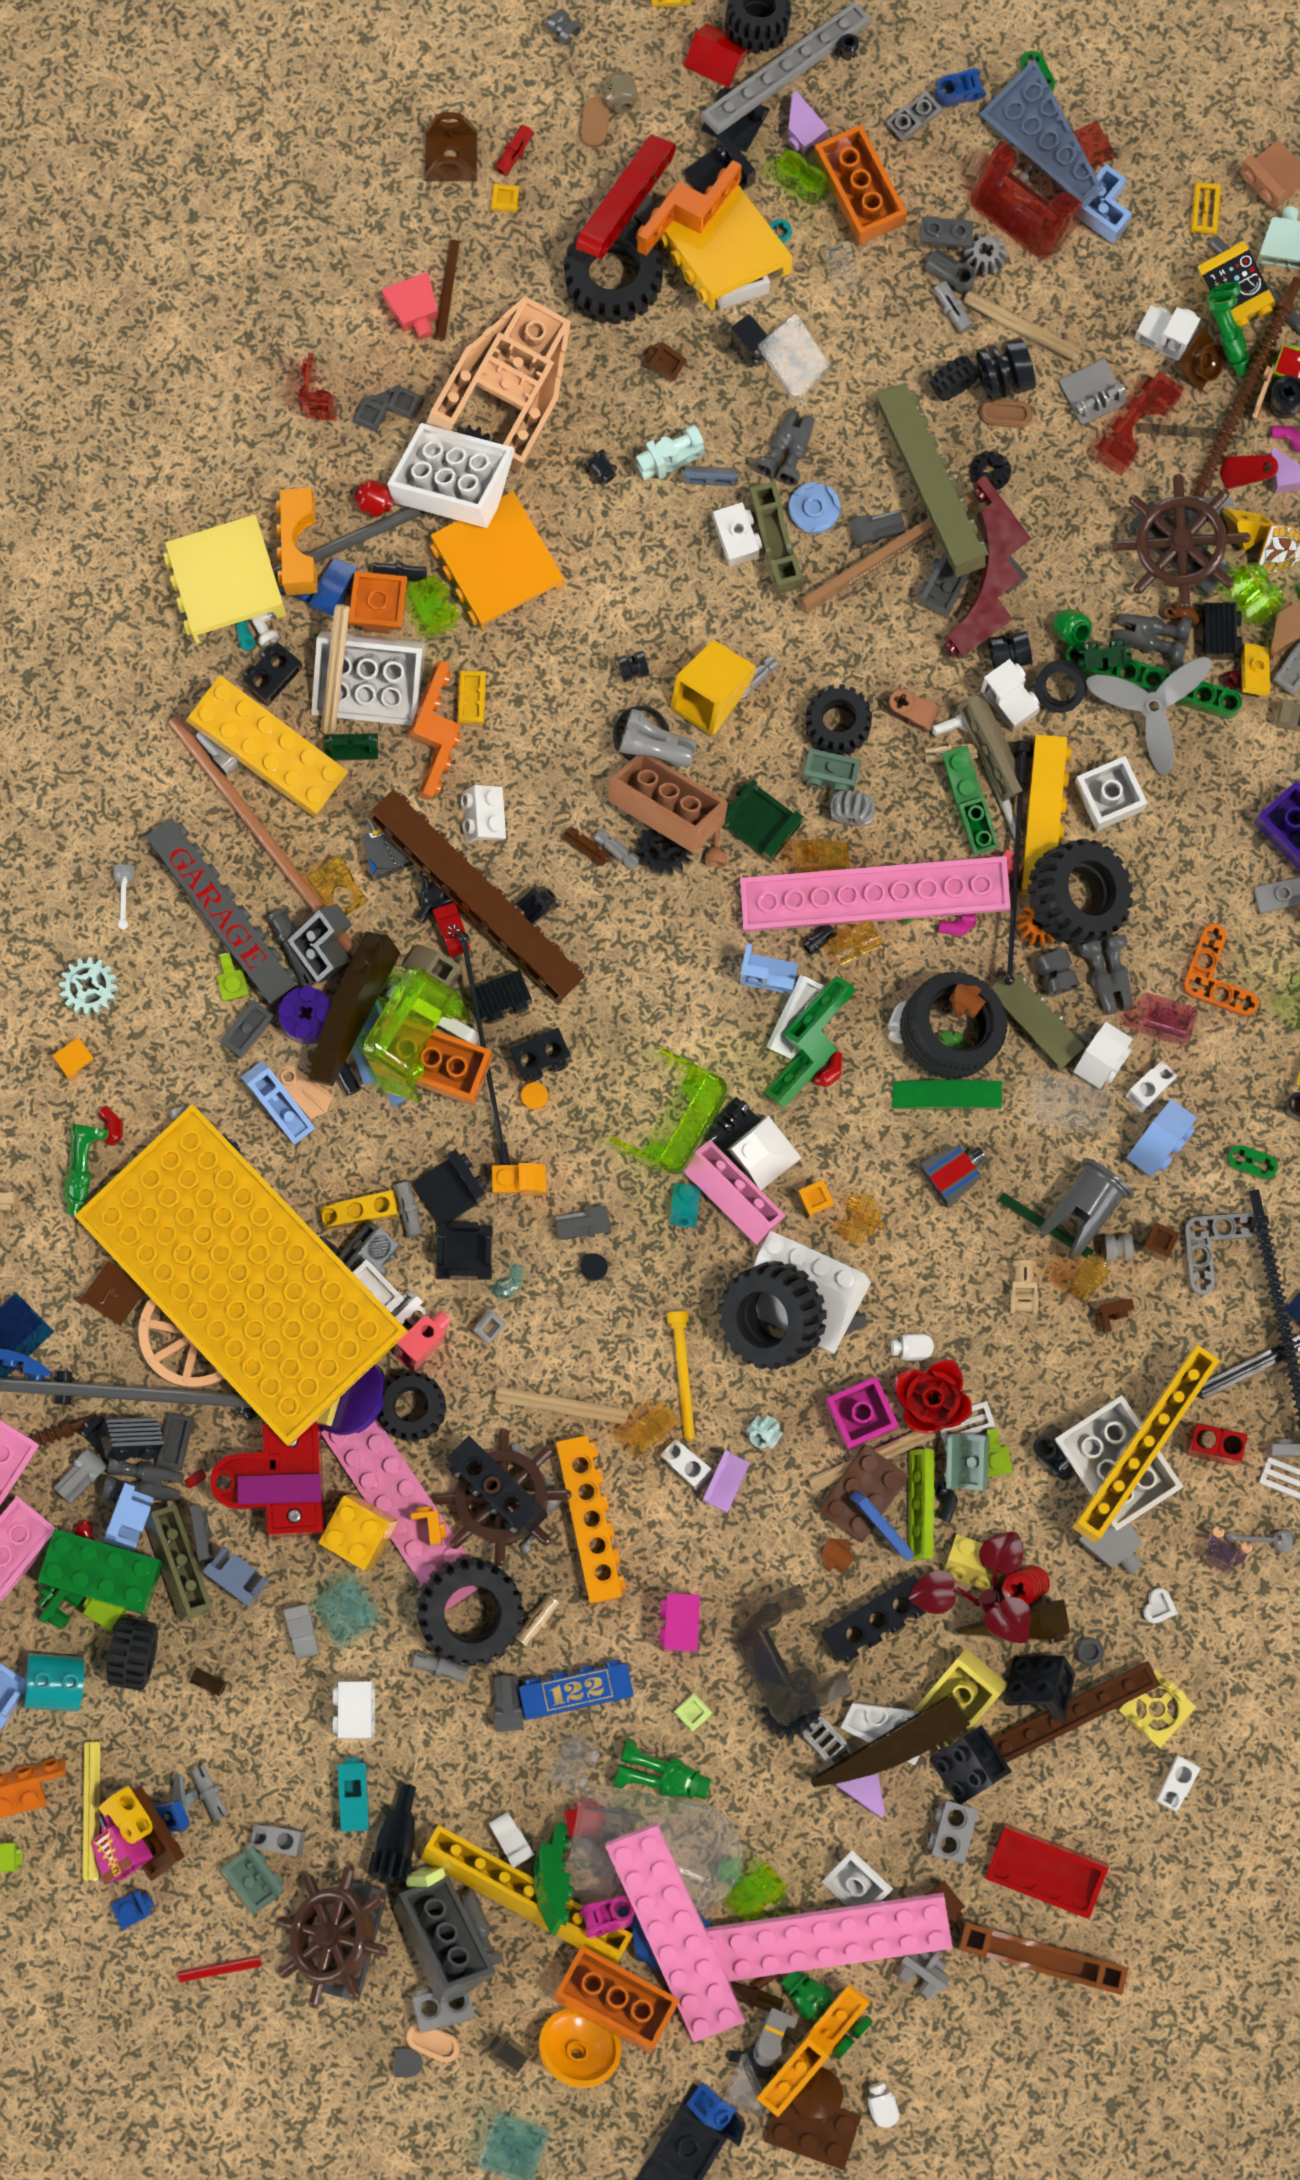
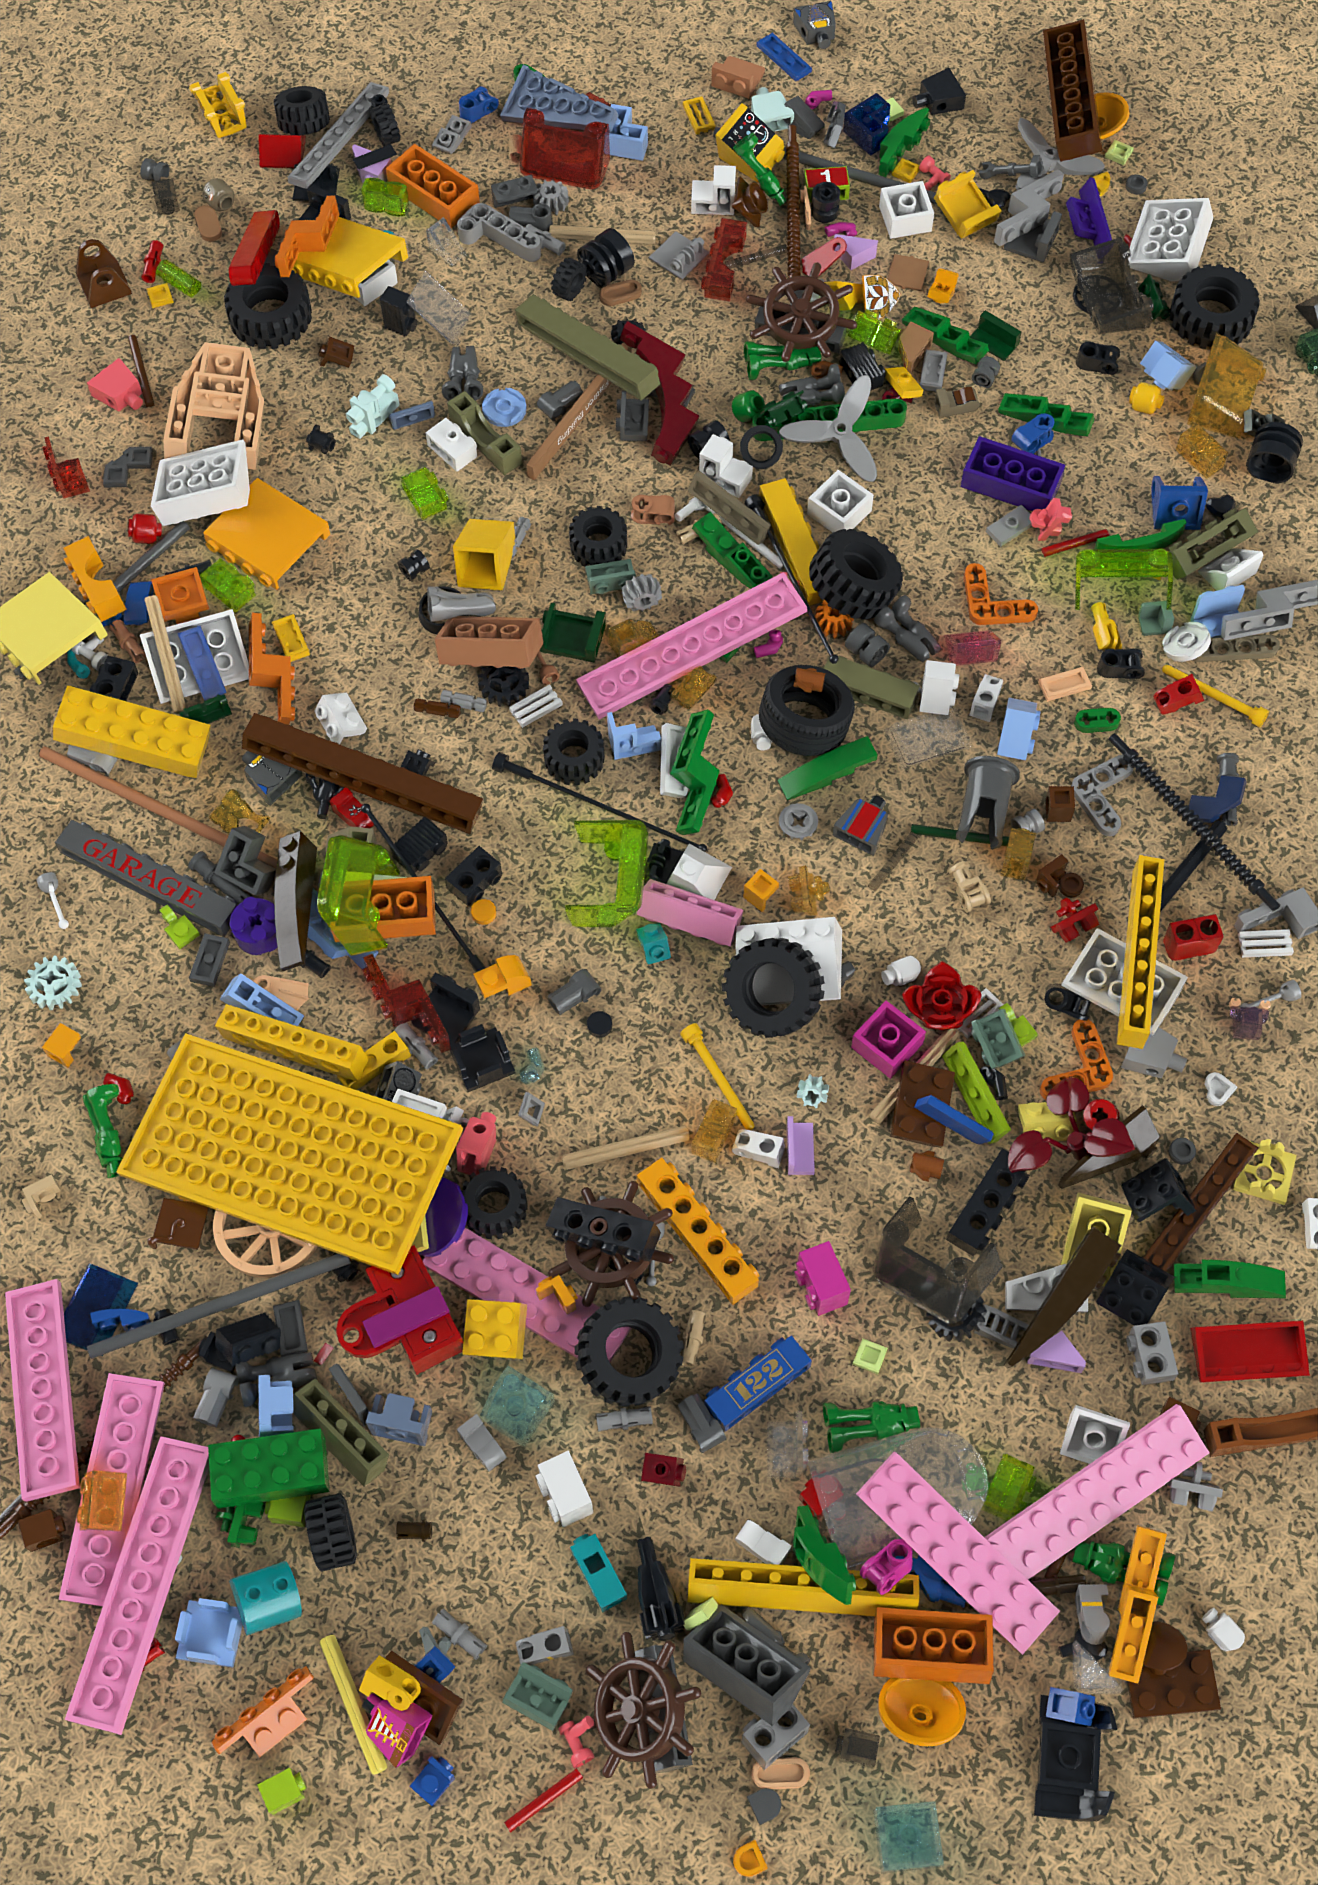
camera: 25 degrees left, 15 degrees down
(269, 1925) = (572, 1733): none -> coral piece
(289, 1158) = (292, 1042): none -> yellow brick
(305, 627) = (127, 641): none -> nougat pin
(369, 692) = (202, 663): none -> blue tile
(372, 2101) = (749, 1860): none -> light orange tile
(414, 1166) = (405, 1003): none -> clear red bracket
(453, 1732) = (654, 1469): none -> dark red brick
(533, 186) = (178, 278): none -> clear neon green axle
(562, 69) = (165, 196): none -> clear smoke brick
(623, 939) = (501, 763): none -> black piece
(682, 582) = (424, 492): none -> clear neon green brick
(687, 877) = (532, 698): none -> white tile
(695, 983) = (573, 768): none -> black tyre
(811, 119) = (374, 156): none -> black sticker
(842, 76) = (385, 124): none -> black tyre
(897, 1127) = (799, 812): none -> light grey gear
(909, 282) = (489, 222): none -> light grey beam
(964, 1224) = (893, 861): none -> clear smoke bar
(1039, 1534) = (1086, 1074): none -> orange beam
(1063, 1797) = (1231, 1277): none -> green slope
(1100, 1371) = (1085, 916): none -> red hips
(1107, 576) = (756, 361): none -> green piece
(1129, 1330) = (1071, 885): none -> reddish brown tile
(1241, 1105) = (1065, 684): none -> light nougat tile

